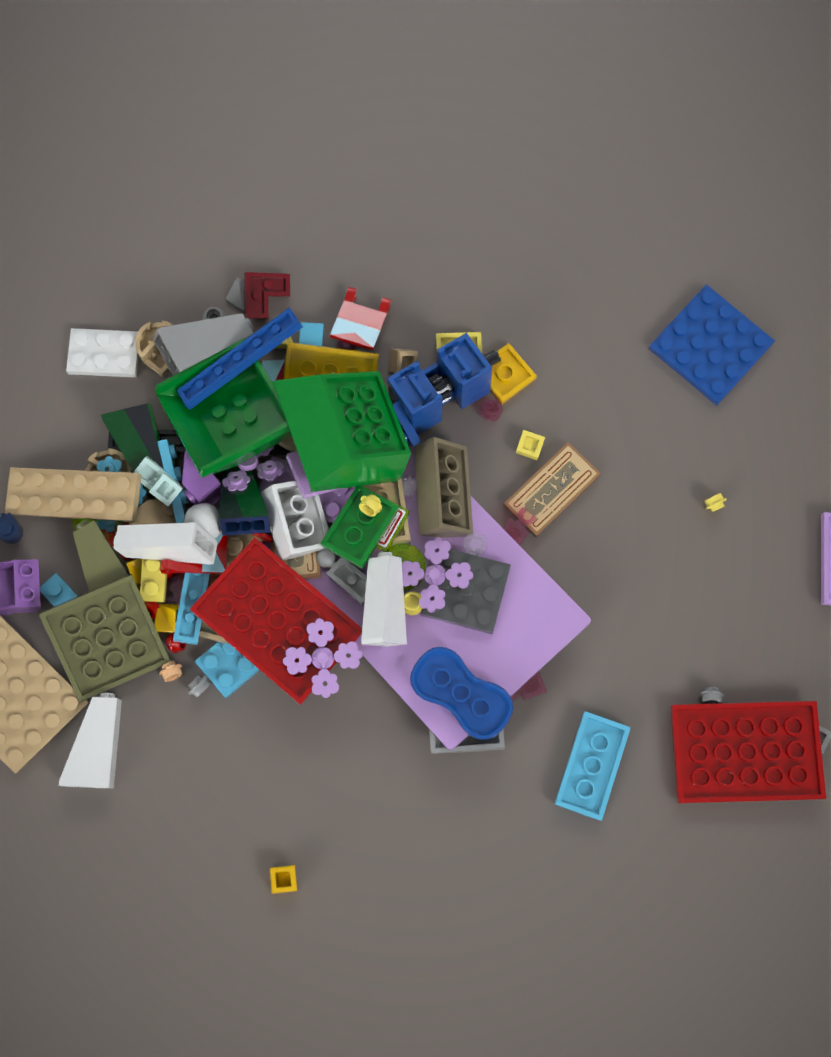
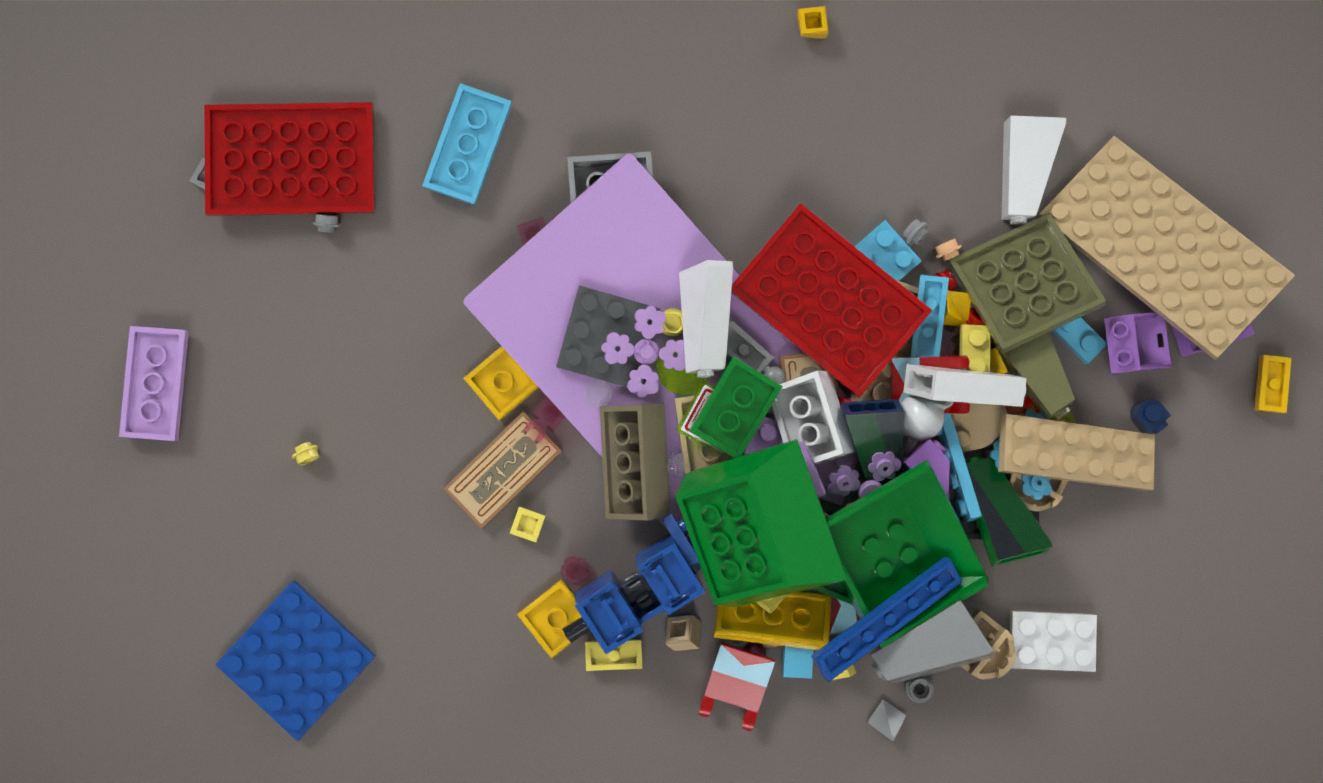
camera: 175 degrees left, 10 degrees up
(158, 481) = (977, 467): light aqua slope -> none
(260, 287) = (865, 726): dark red plate -> none
(322, 658) = (776, 253): lavender plant -> none
(370, 505) = (723, 430): light yellow plate -> none
(477, 704) = (634, 227): blue plate -> none
(558, 558) = (500, 383): none -> yellow tile

